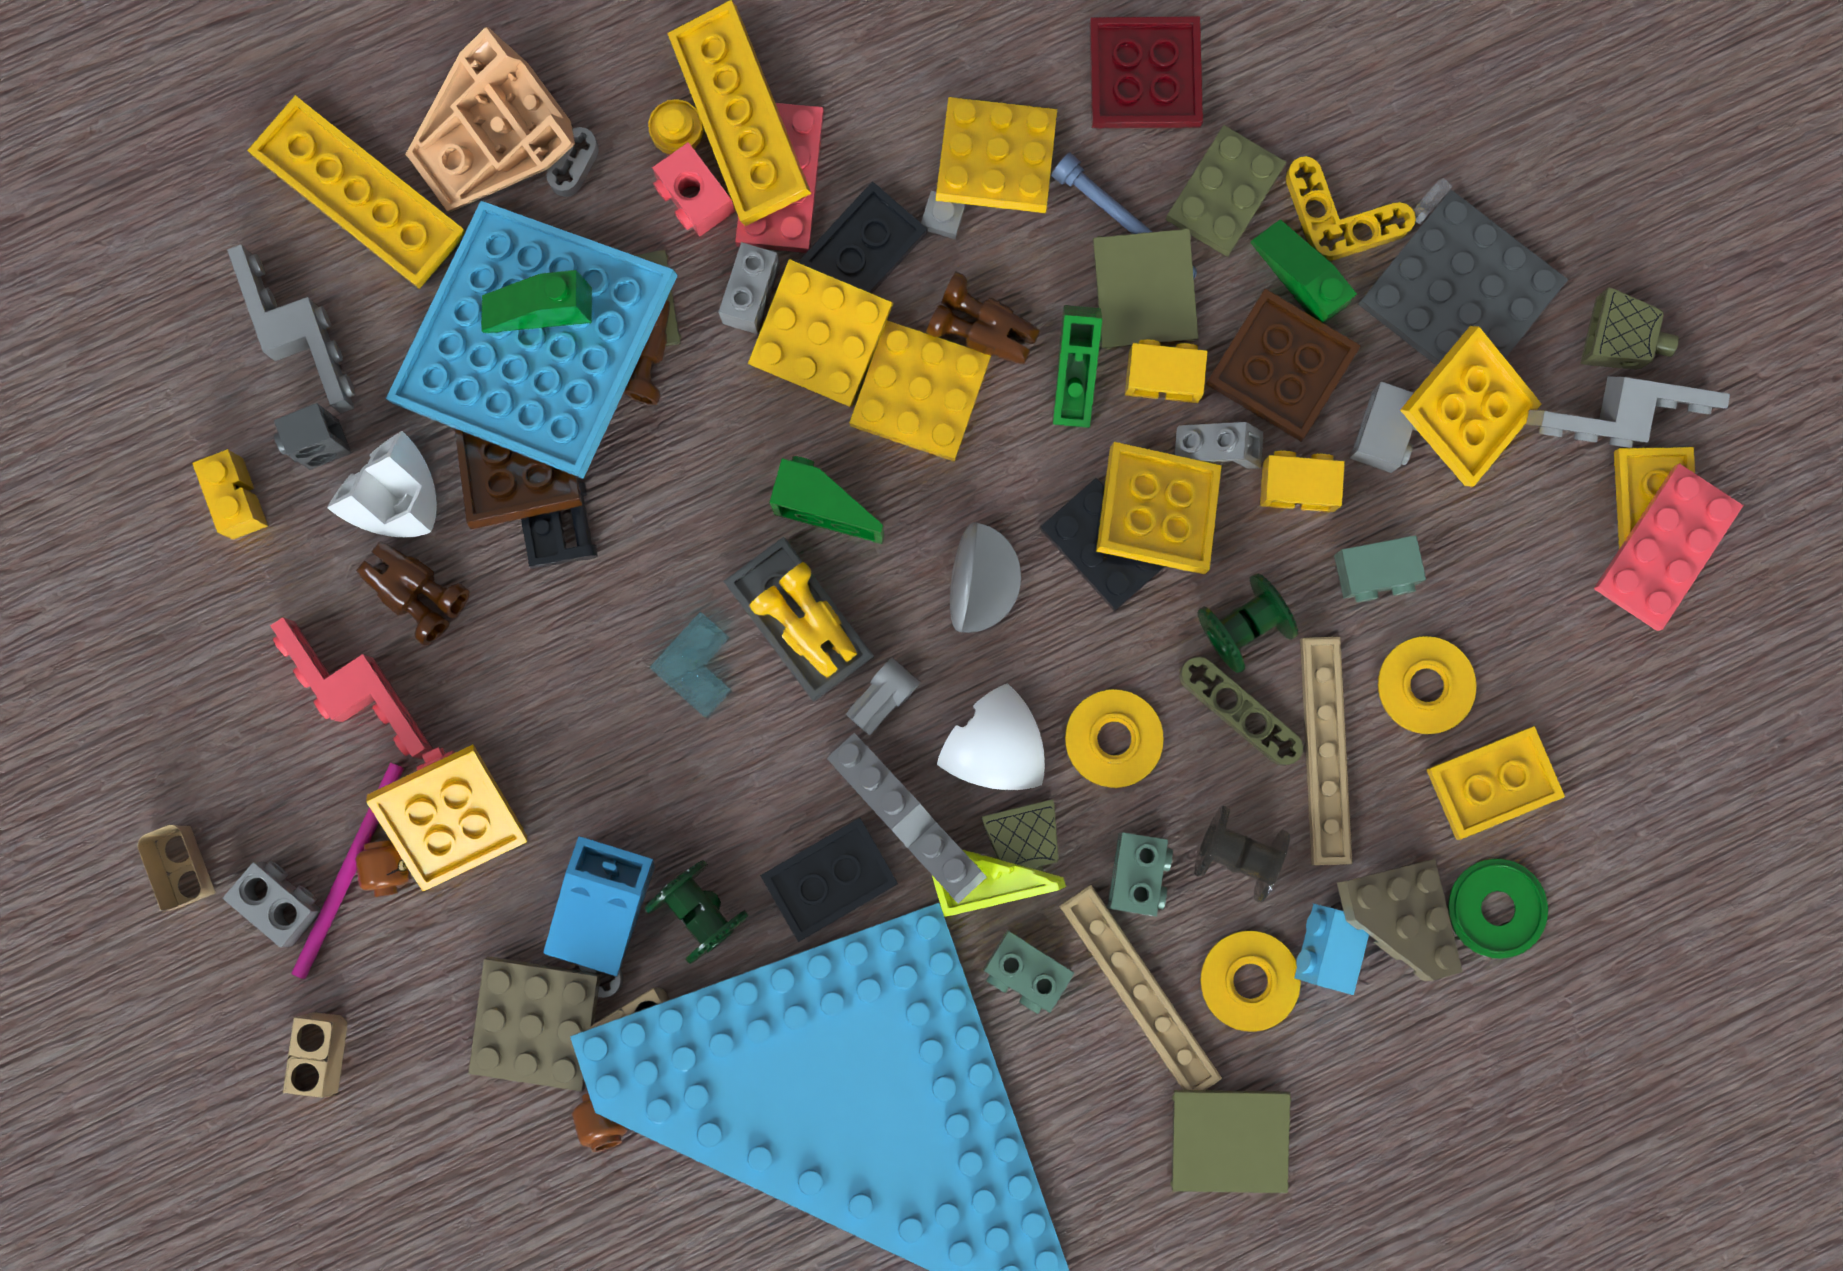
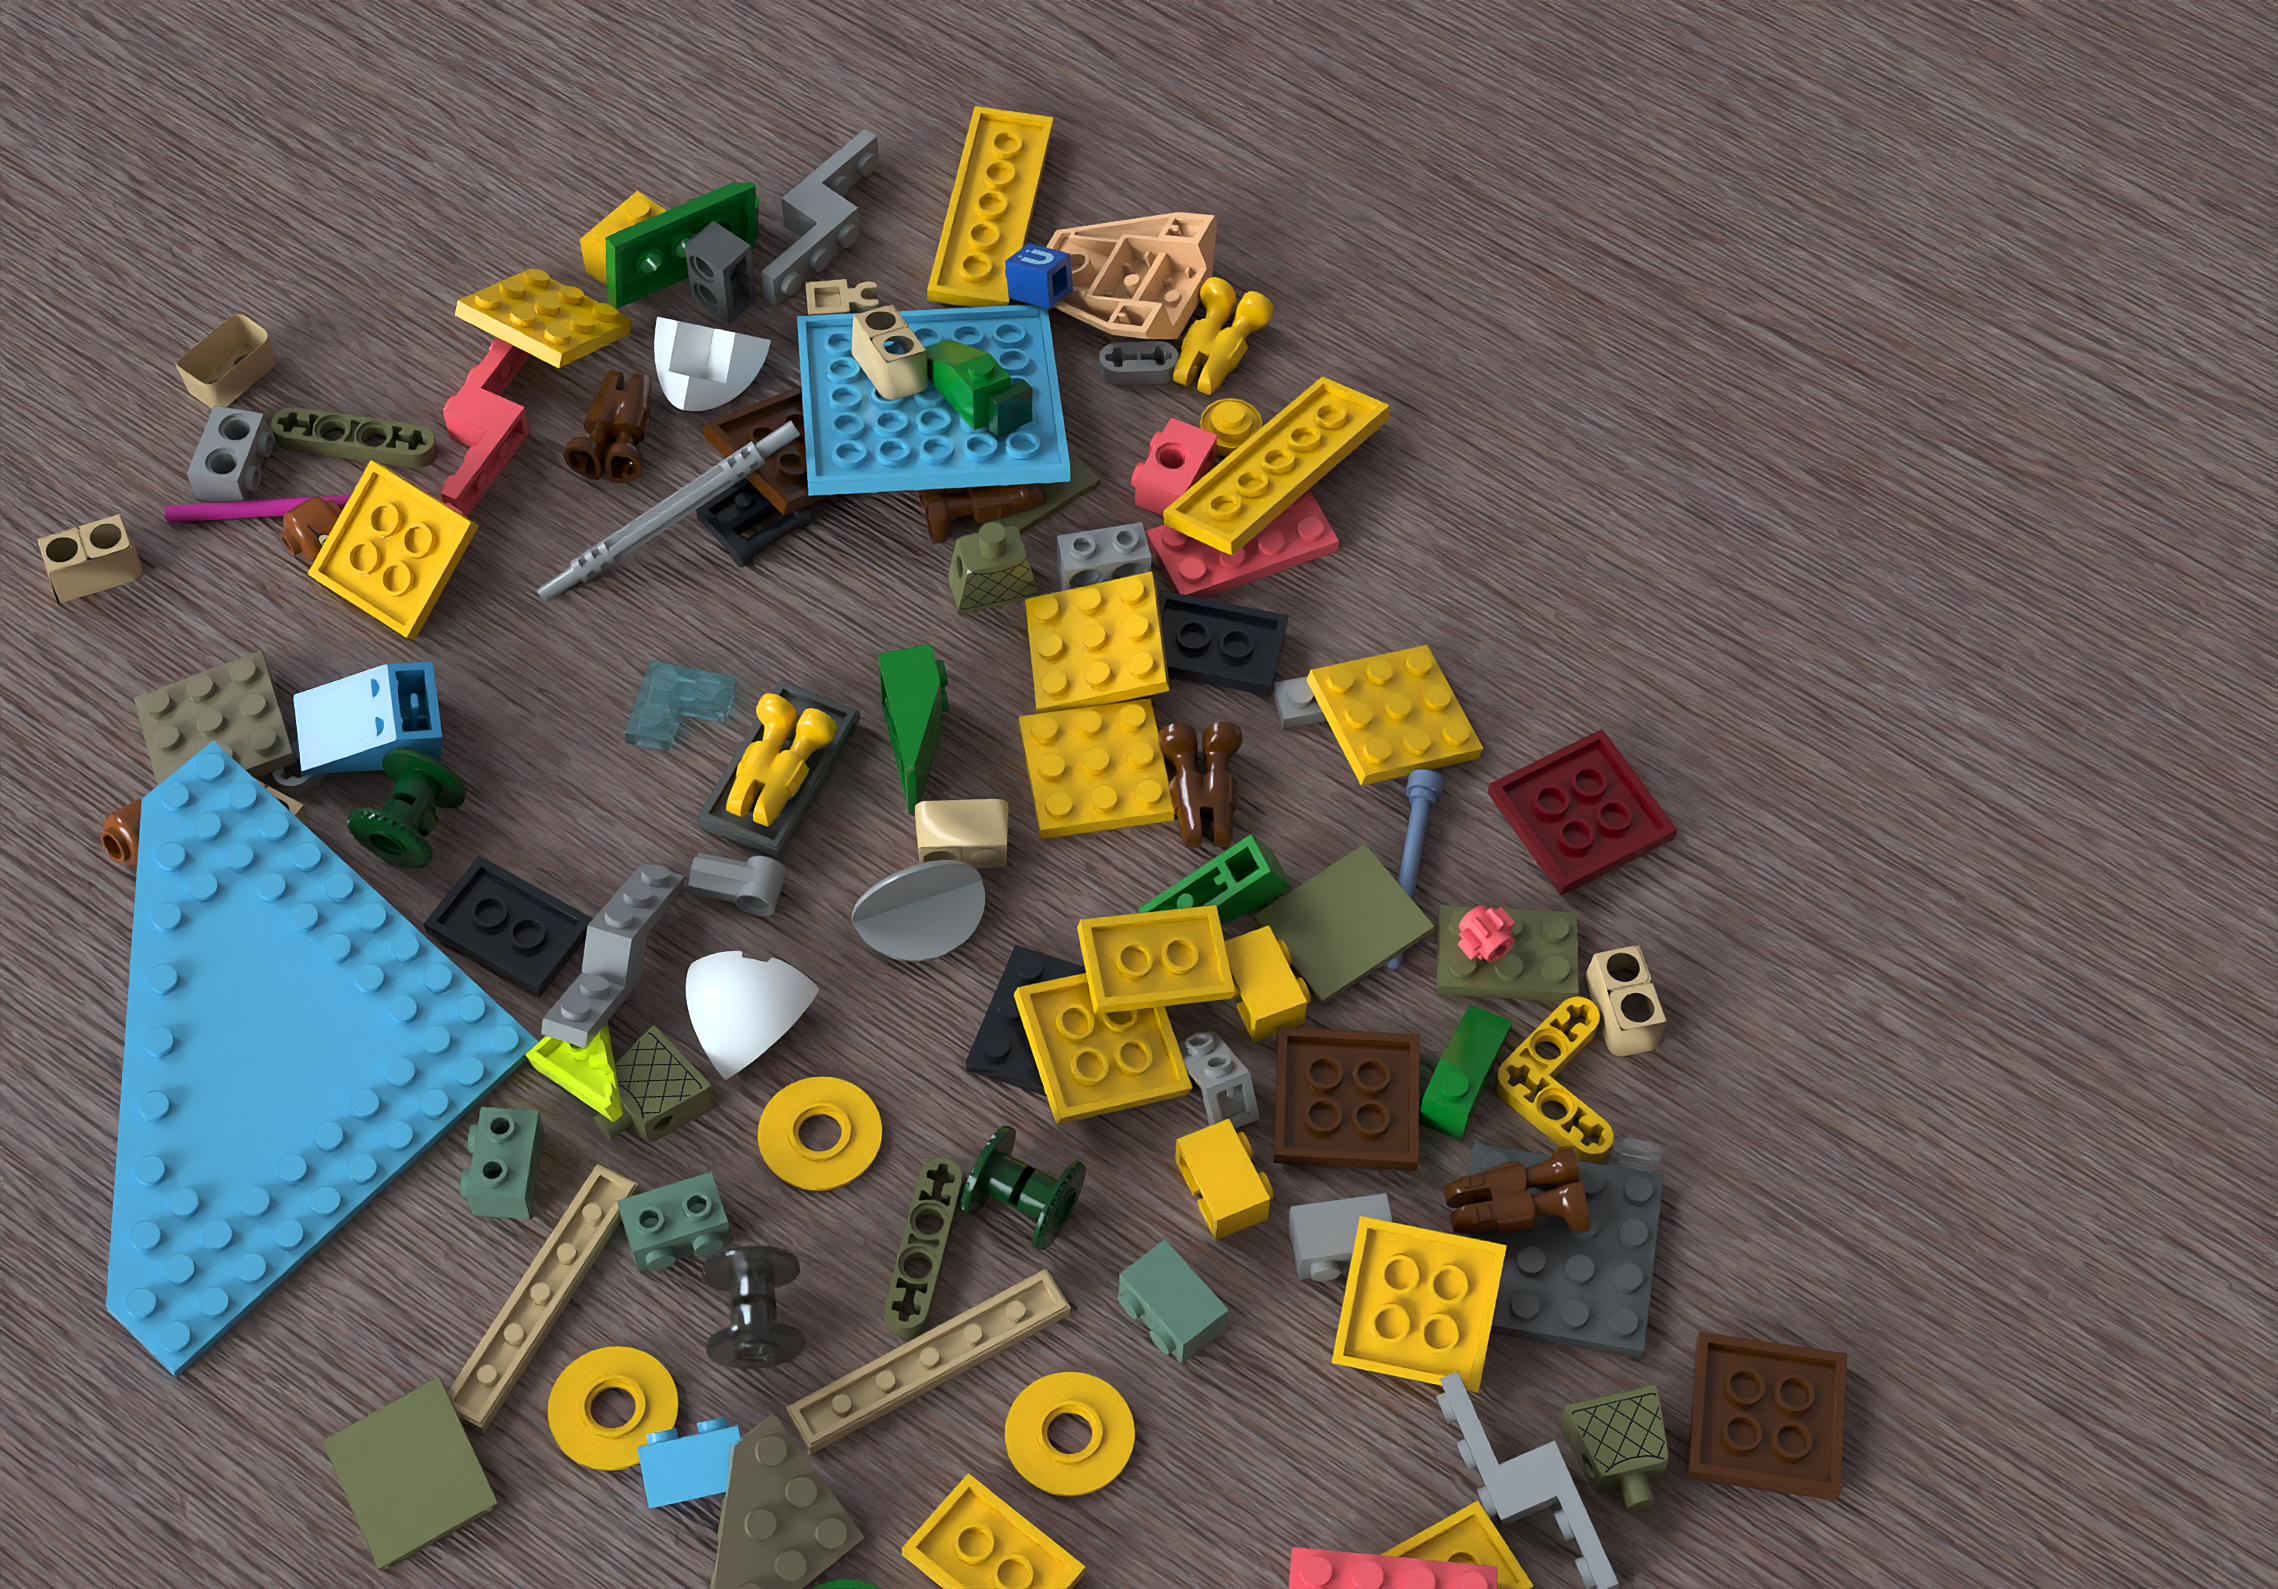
camera: 60 degrees right, 25 degrees down
(269, 470) = (657, 240): none -> green hinge
(278, 597) = (544, 317): none -> yellow plate
(300, 793) = (356, 431): none -> olive beam
(382, 361) = (836, 298): none -> tan plate
(459, 193) = (1039, 275): none -> blue brick
(491, 362) = (903, 374): none -> tan piece
(530, 589) = (668, 512): none -> light grey axle
(587, 100) = (1217, 348): none -> yellow piece
(594, 284) = (1010, 408): none -> dark green tile
(715, 375) = (990, 569): none -> olive torso
(932, 516) = (963, 831): none -> tan piece
(1126, 438) = (1155, 959): none -> yellow plate
(1224, 197) = (1486, 933): none -> coral gear
(1299, 145) = (1637, 1036): none -> tan piece
(1425, 302) = (1501, 1198): none -> reddish brown piece
(1652, 229) = (1767, 1416): none -> reddish brown plate

